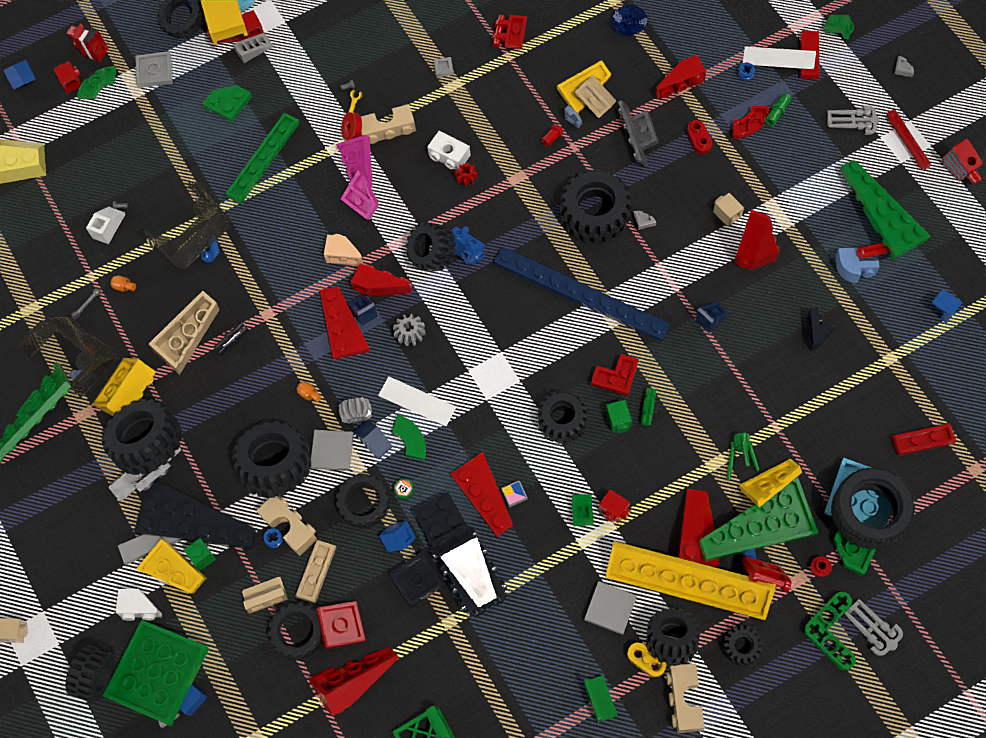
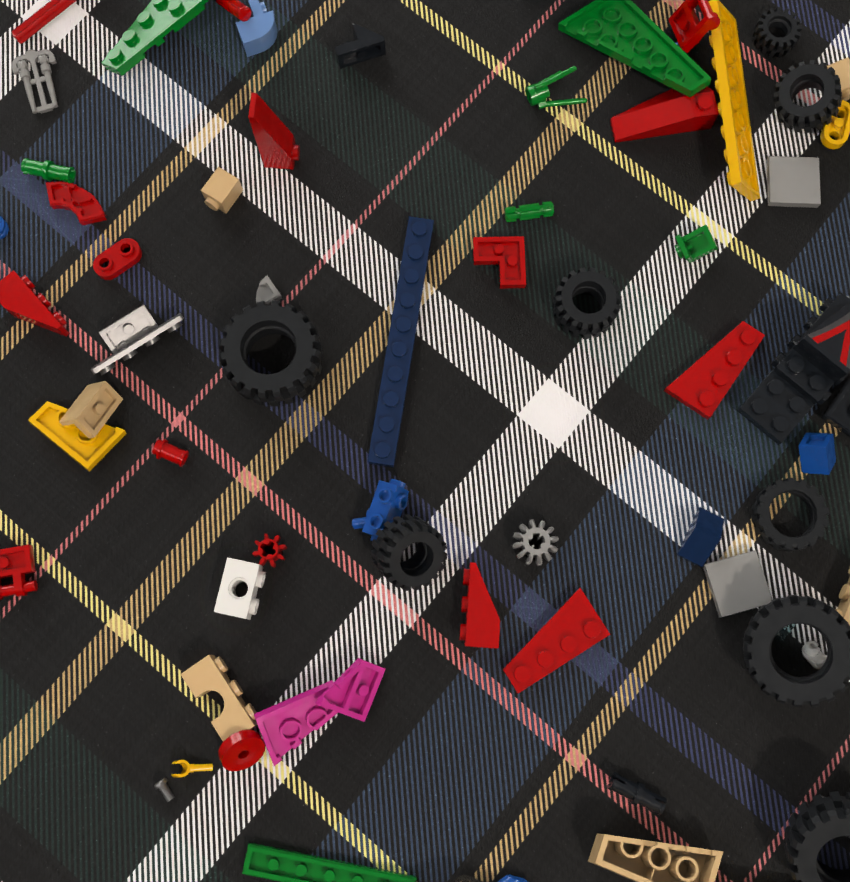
camera: 115 degrees left, 10 degrees up
(308, 391) = (671, 649): orange cylinder -> none
(341, 251) = (448, 686): light nougat slope -> none
(355, 410) = (680, 568): light grey gear -> none
(363, 309) = (524, 621): dark blue slope -> none
(403, 489) = (751, 470): tile -> none
(411, 436) = (679, 485): green tile -> none
(417, 401) = (625, 499): white sticker -> none
(443, 67) = (93, 652): light grey tile -> none
(514, 493) = (702, 333): tile -> none
(572, 117) = (132, 433): sand blue tile -> none
(614, 507) = (675, 210): red brick -> none
(618, 416) = (558, 239): green brick -> none
(711, 316) = (382, 170): dark blue slope -> none
(770, 482) = (578, 48): yellow wing -> none

